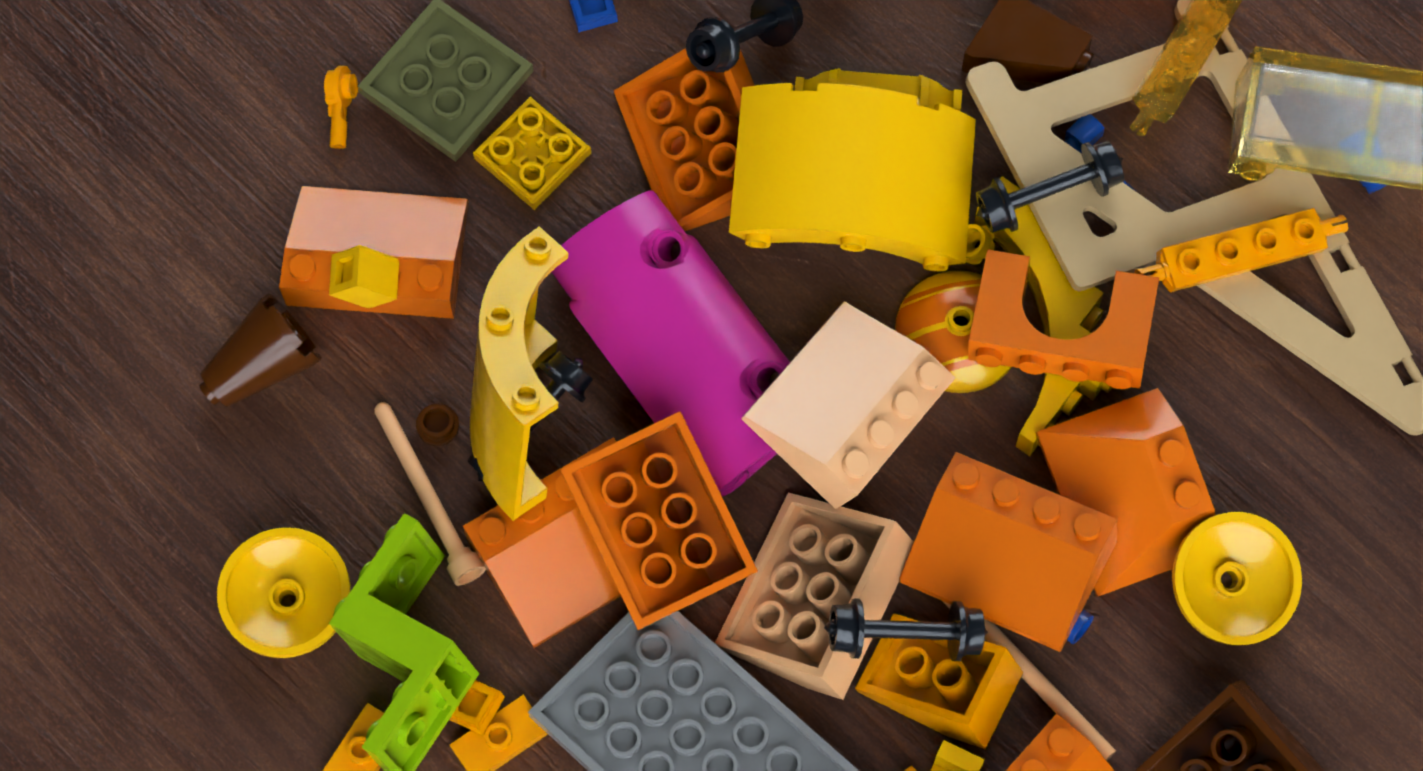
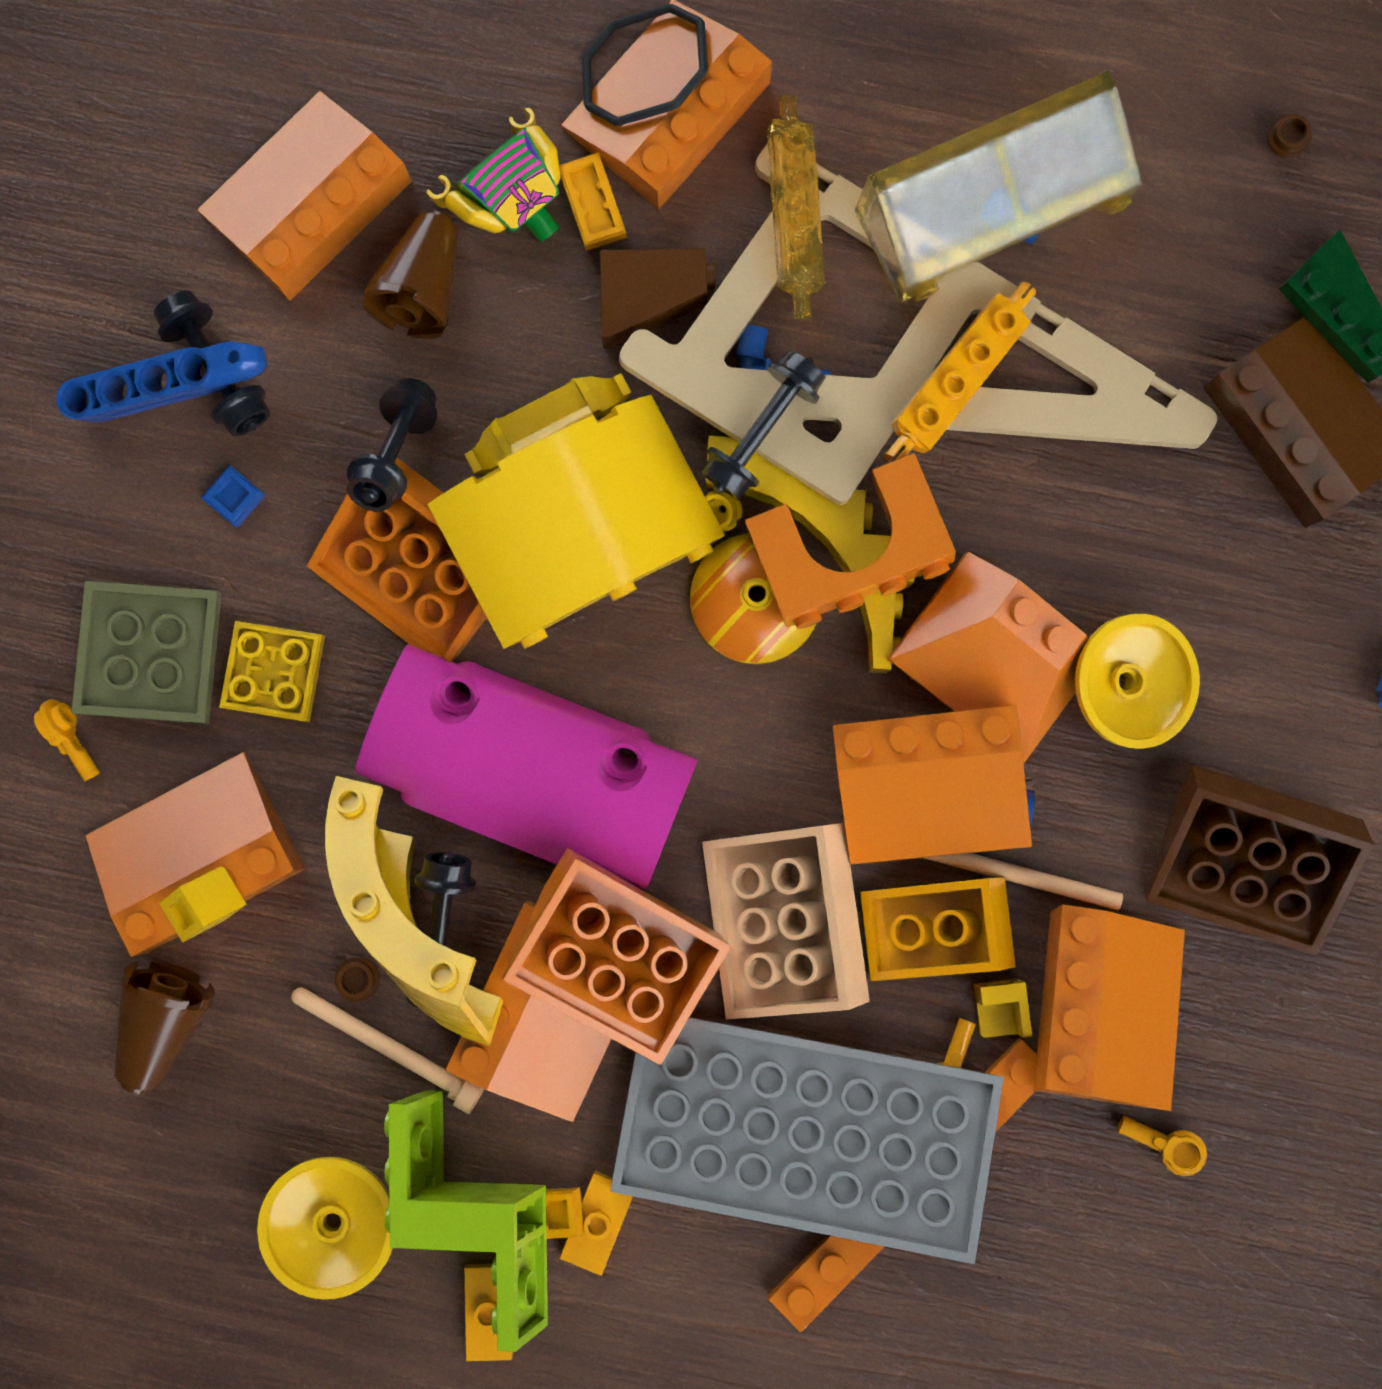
camera: 35 degrees left, 15 degrees up
(847, 402) = (710, 739): light nougat slope -> none
(963, 631) = (944, 890): black piece -> none

